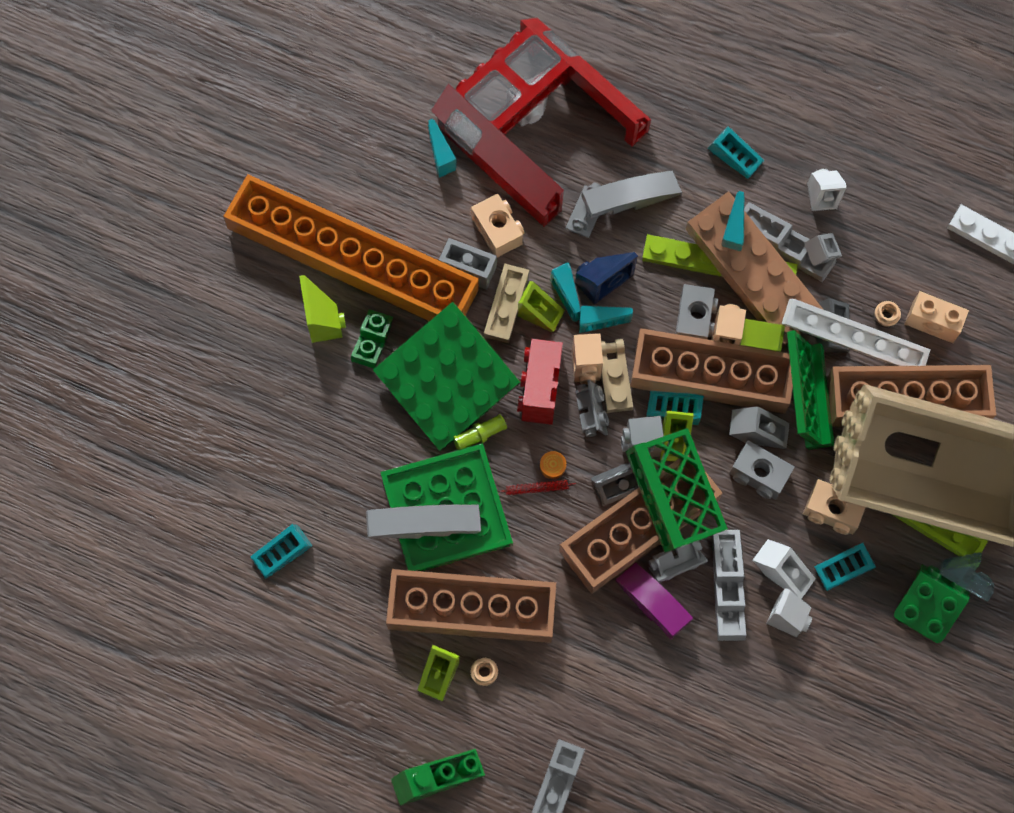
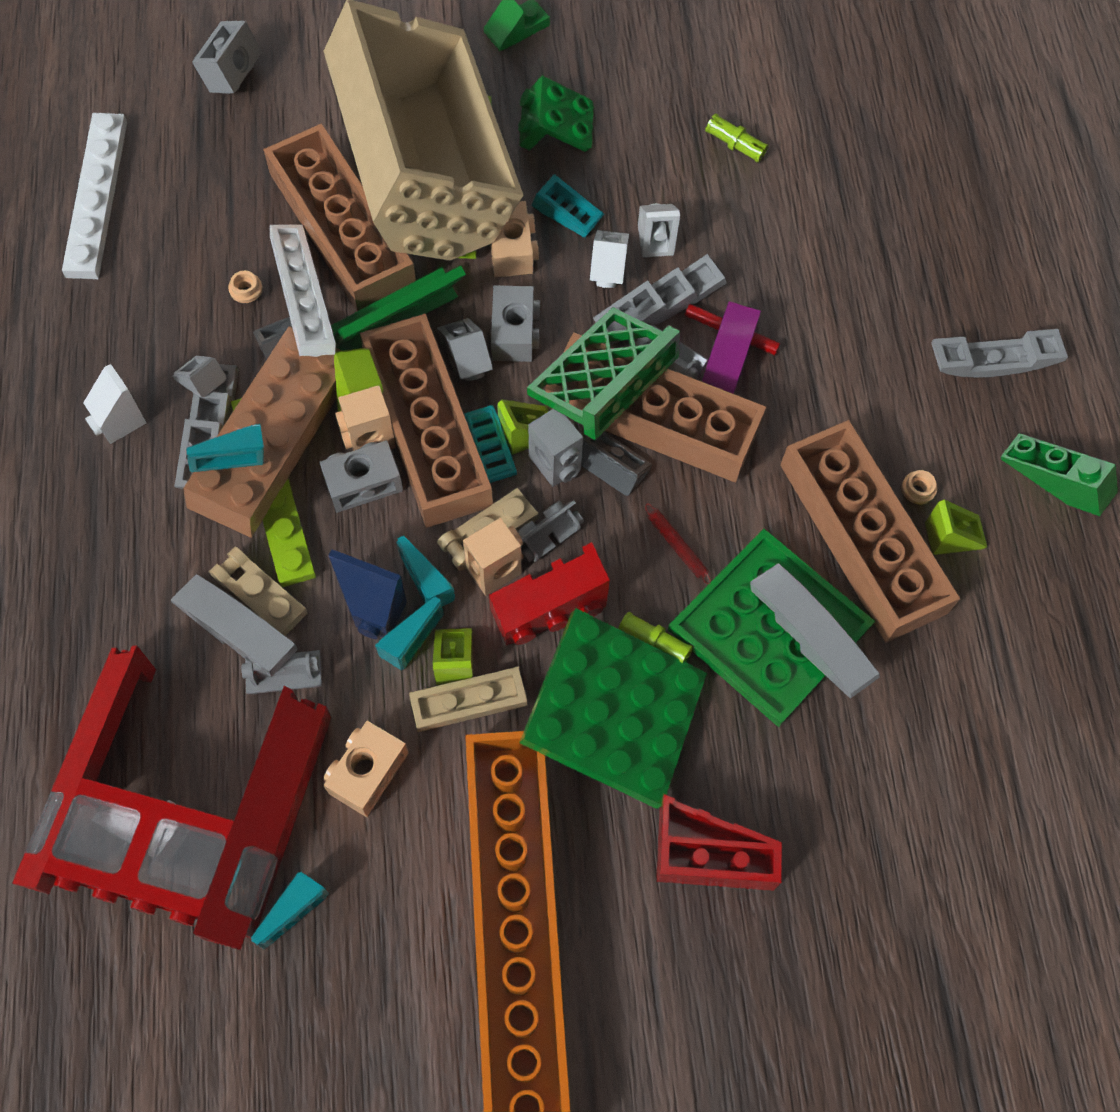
camera: 120 degrees left, 5 degrees down
(275, 543) = (924, 779): teal slope -> none
(321, 313) = (626, 922): lime slope -> none
(330, 383) = (714, 852): none -> red wedge
(372, 339) = (613, 842): green slope -> none
(470, 260) = (444, 770): light grey brick -> none
(553, 465) = (640, 540): orange tile -> none
(648, 221) = (259, 592): none -> tan plate
(695, 612) = (714, 321): none -> red bar
(731, 159) = (100, 559): teal slope -> none
(845, 730) = (736, 138): none -> lime pin
(936, 317) = (225, 234): light nougat brick -> none
(962, 572) = (509, 95): clear light blue slope -> none

